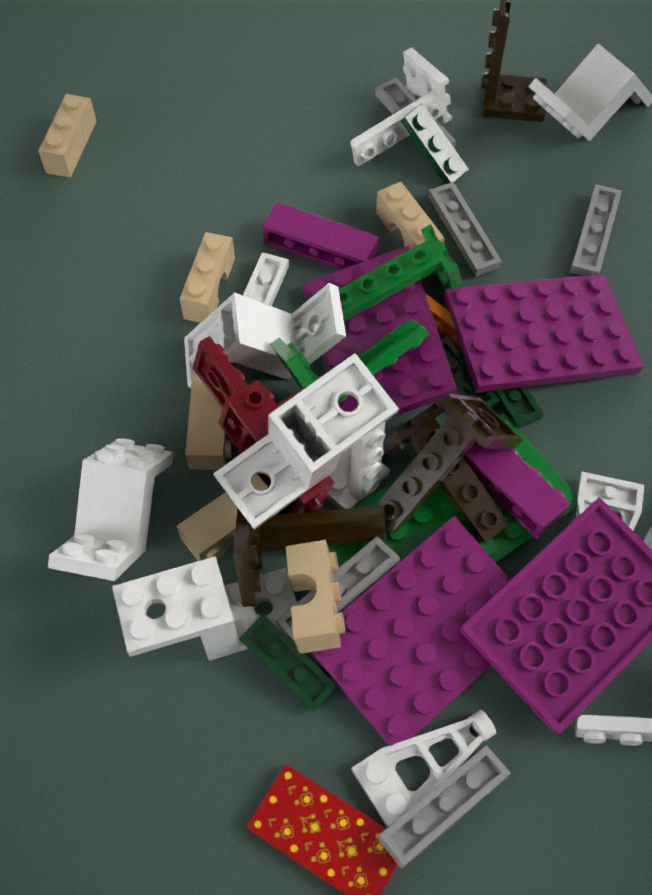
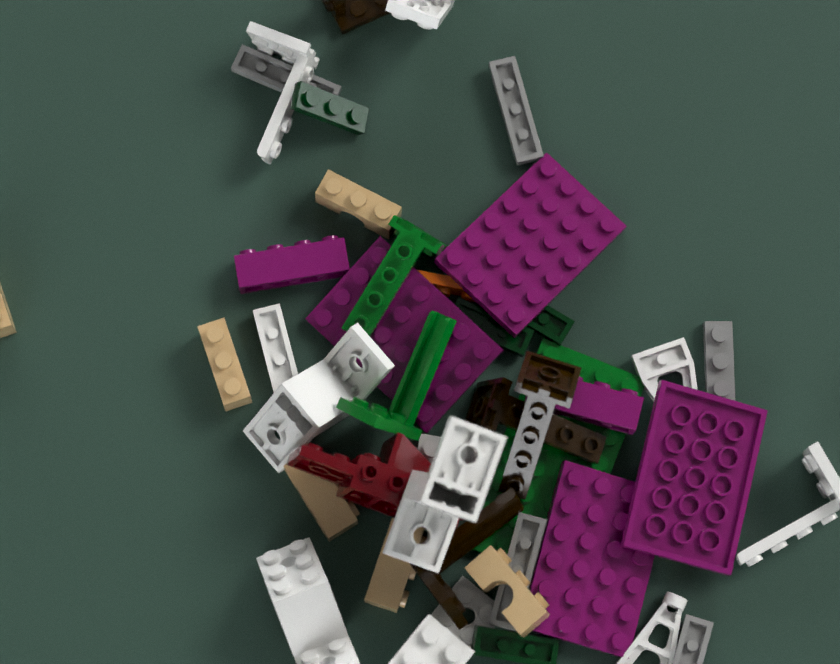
camera: 40 degrees left, 15 degrees up
(465, 229) = (404, 176): light grey plate -> none

